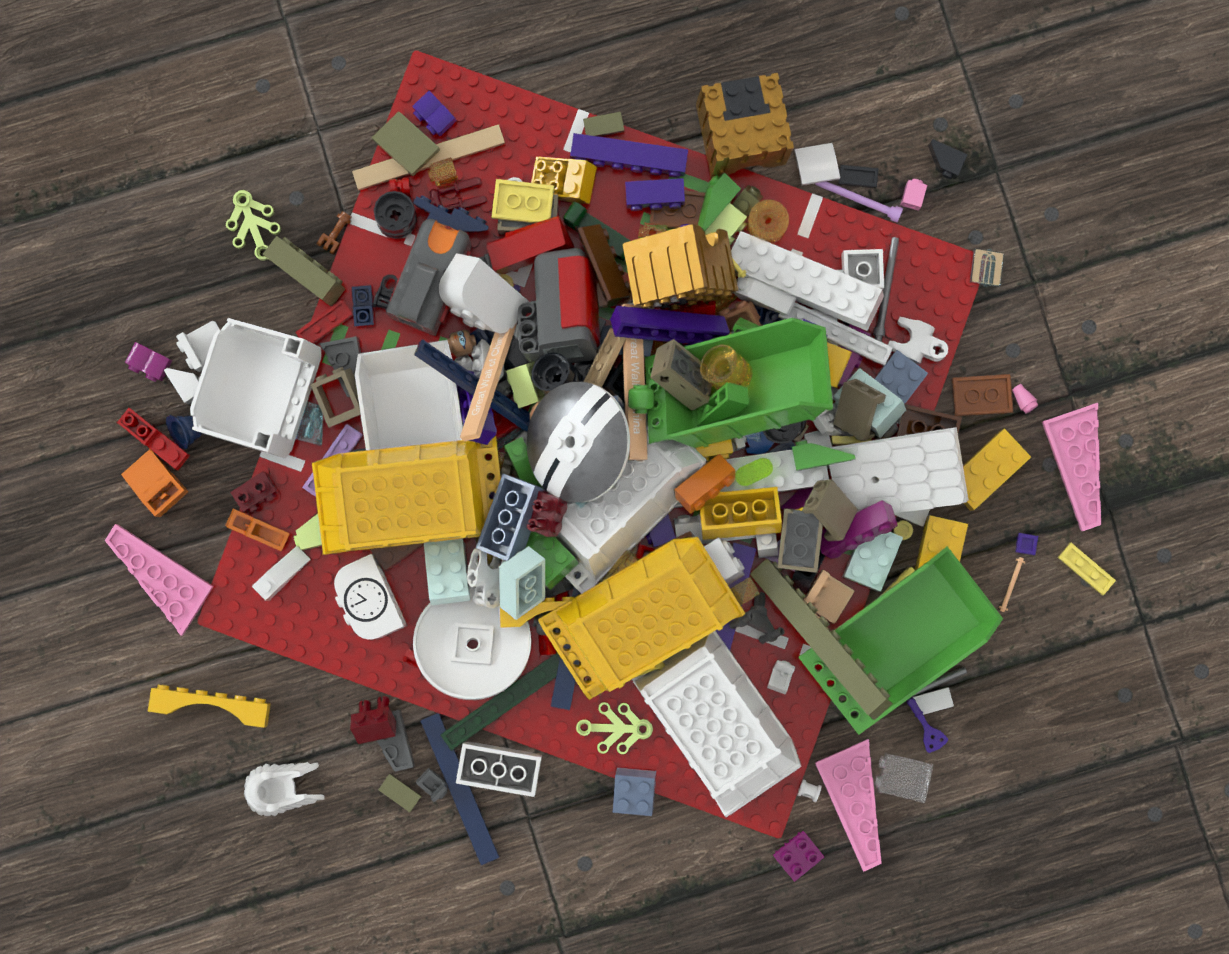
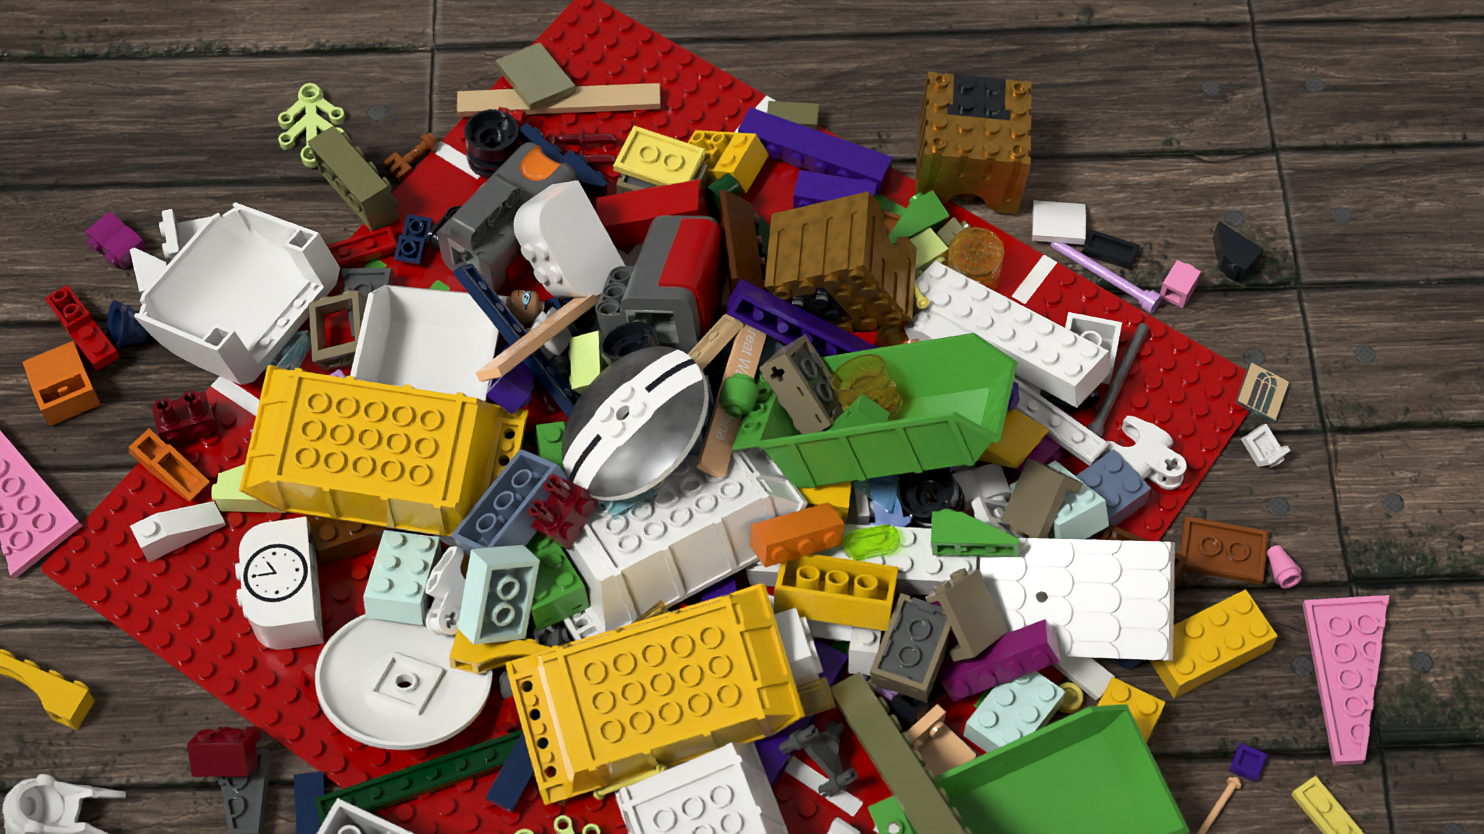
camera: 15 degrees right, 25 degrees down
(433, 113) = (582, 53): dark purple brick -> none
(442, 171) = (570, 115): clear yellow brick -> none
(996, 311) = (1264, 447): none -> white bracket

